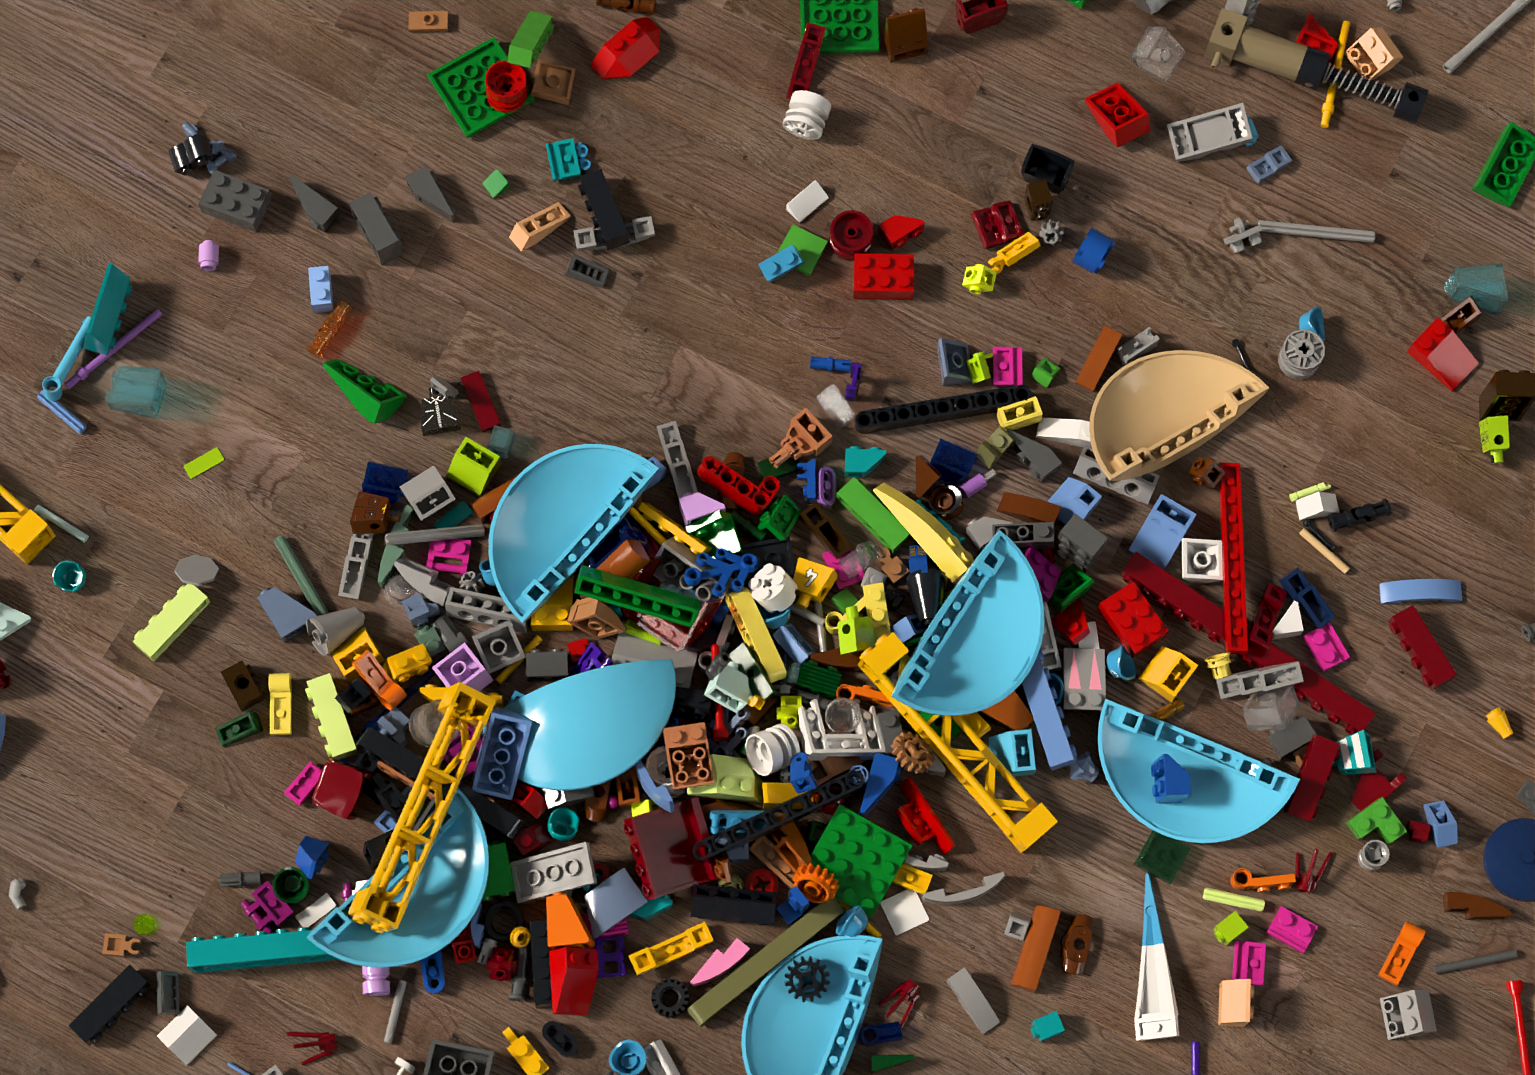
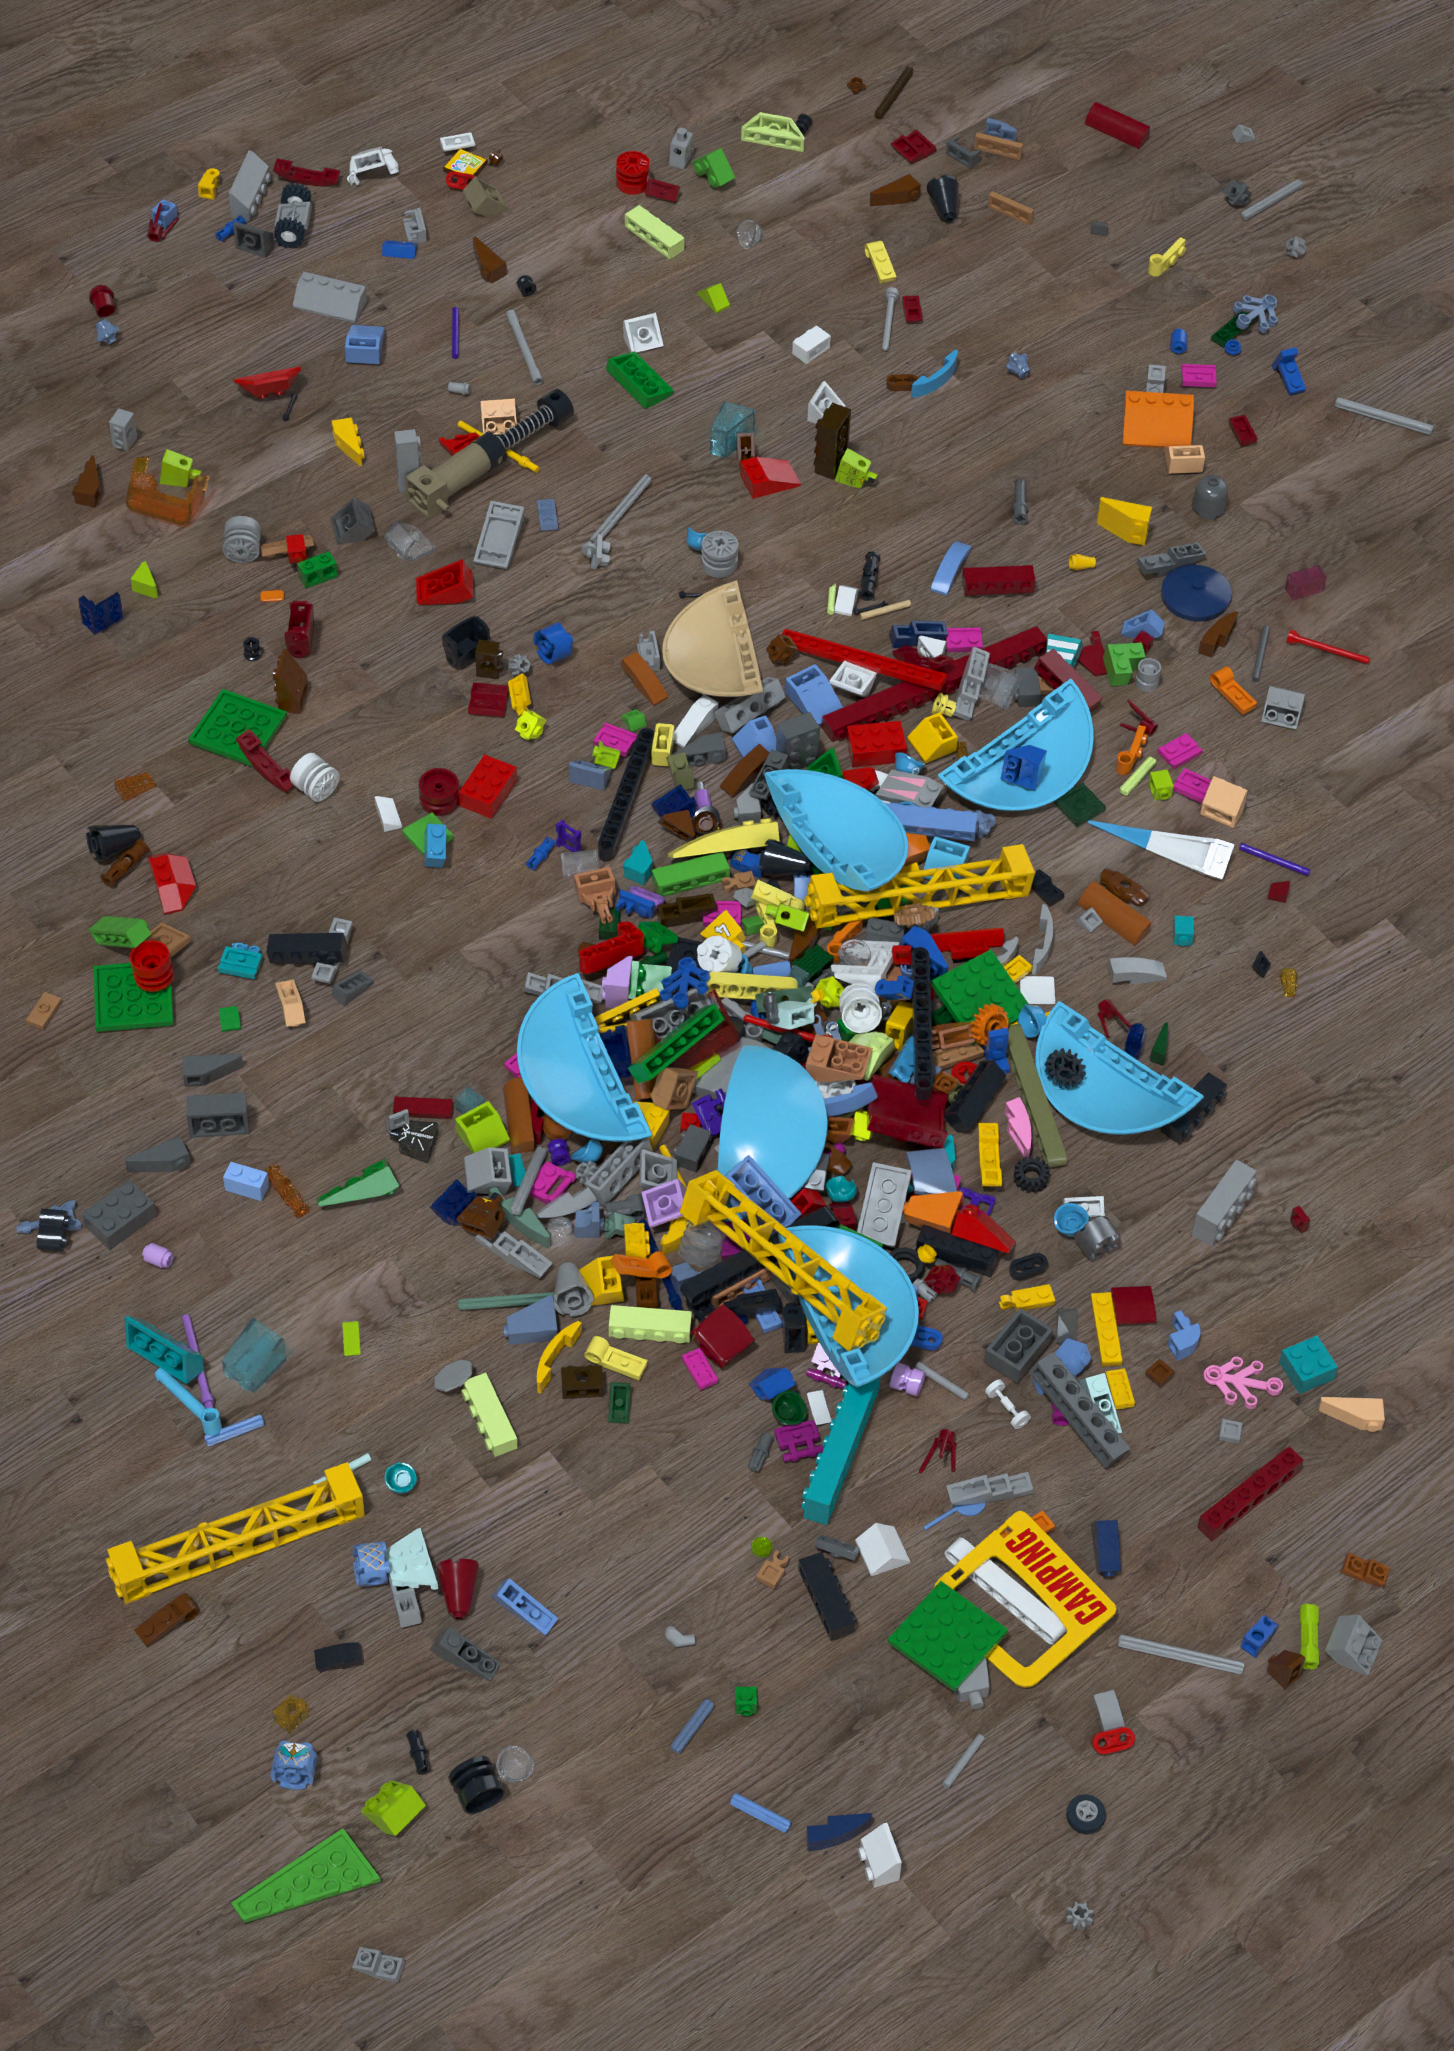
camera: 65 degrees left, 20 degrees down
(234, 647) = (567, 1337): none -> yellow slope
(353, 695) = (642, 1289): black bracket -> none
(482, 547) = (559, 1152): none -> dark purple wheel
(861, 558) = (724, 896): clear slope -> none
(862, 761) = (902, 954): none -> red plate
(899, 229) = (453, 759): red slope -> none
(1036, 865) = (1044, 888): none -> black slope

